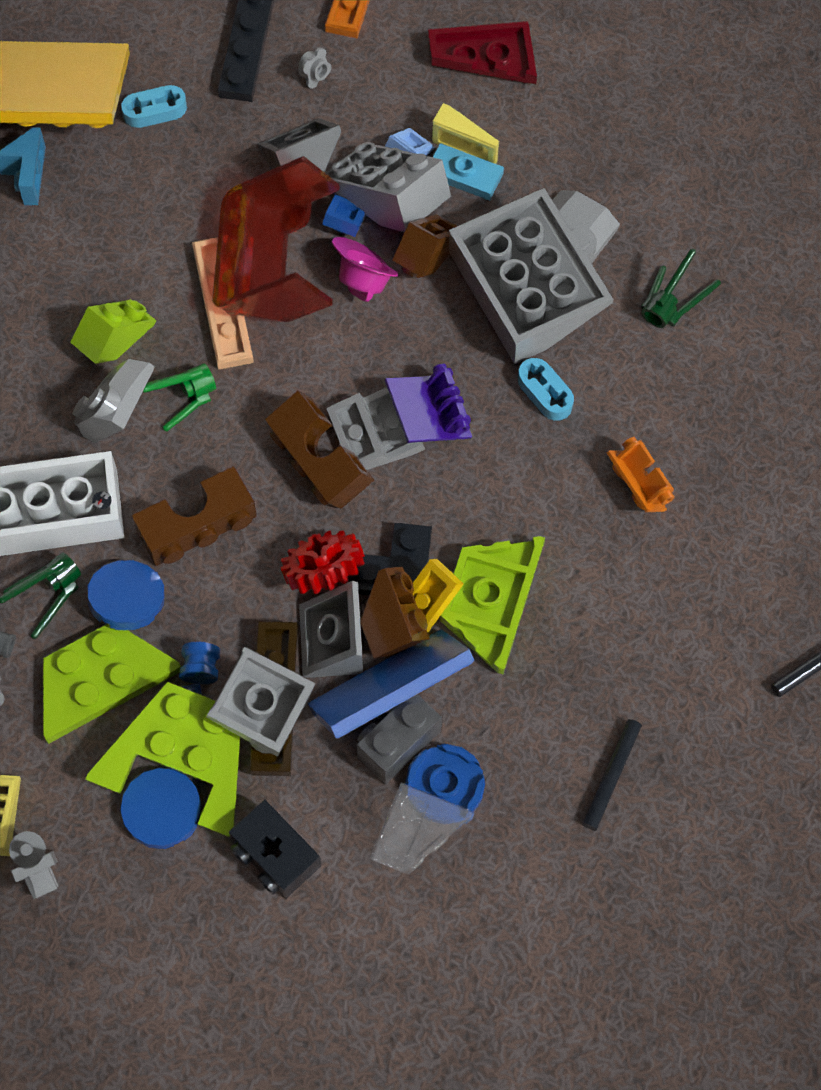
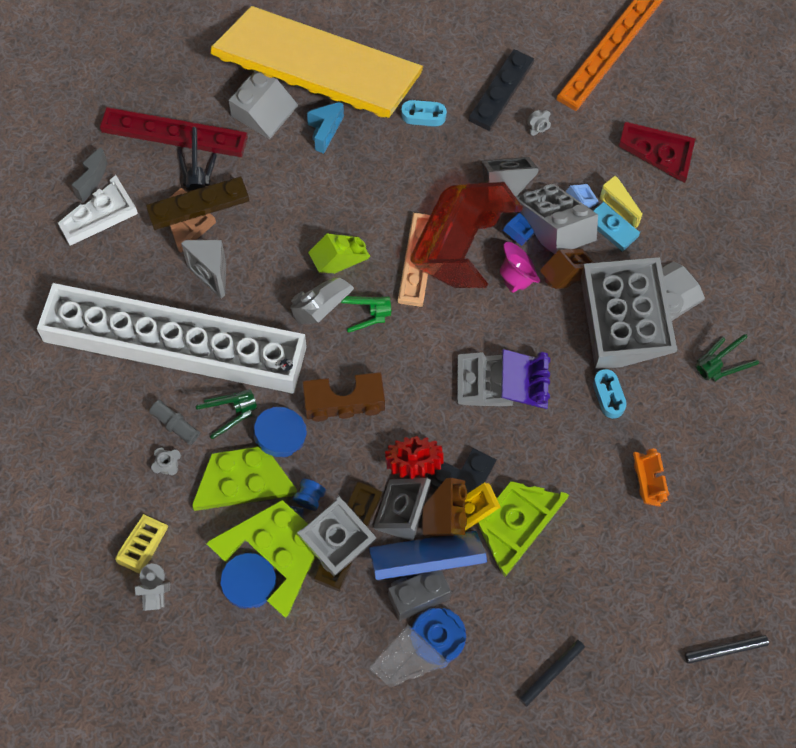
camera: 20 degrees right, 0 degrees up
(268, 828) = (320, 649): black brick -> none
(298, 428) = (432, 362): reddish brown arch -> none

